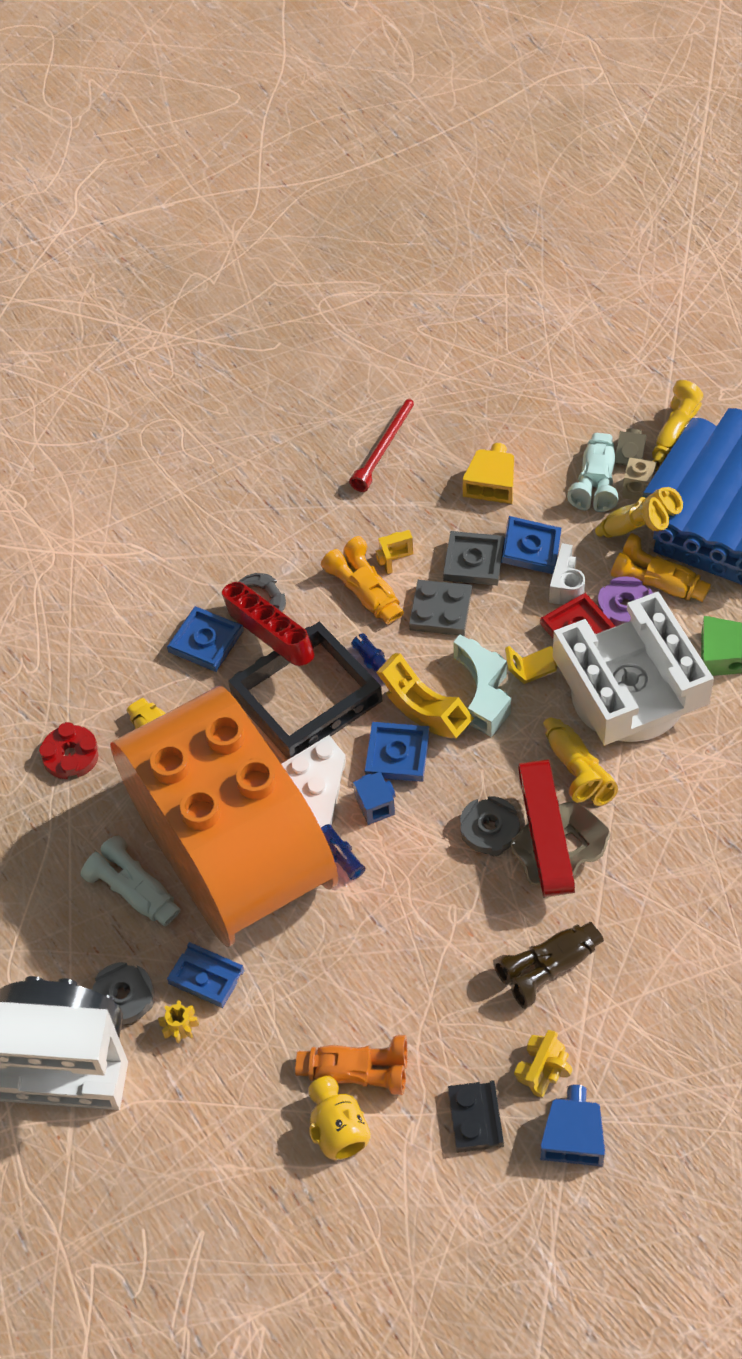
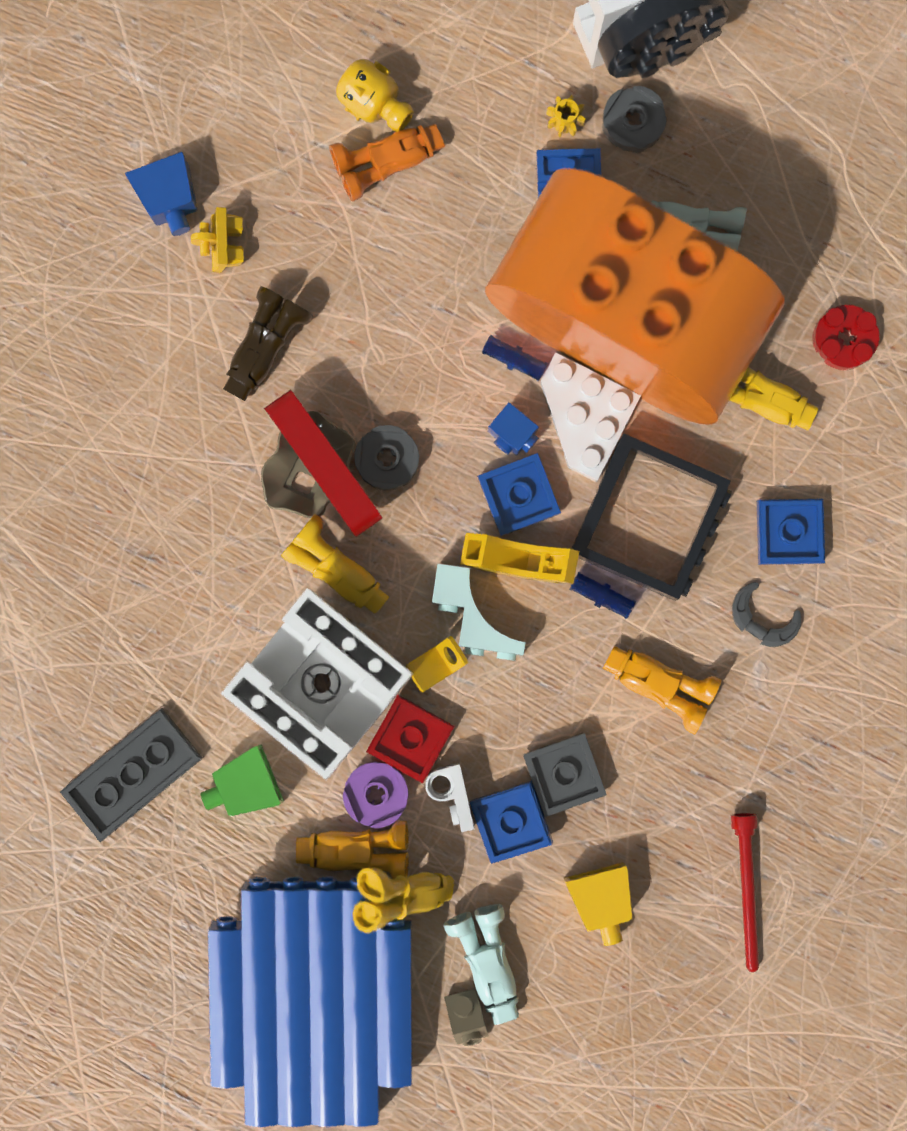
camera: 150 degrees right, 30 degrees up
(268, 623) = (744, 566): red beam -> none
(394, 547) = (656, 748): yellow bracket -> none
(440, 607) = (568, 696): dark grey plate -> none
(475, 1116) = (259, 168): black plate -> none
(637, 478) = (434, 969): tan brick -> none
(685, 405) = (427, 1053): yellow piece -> none

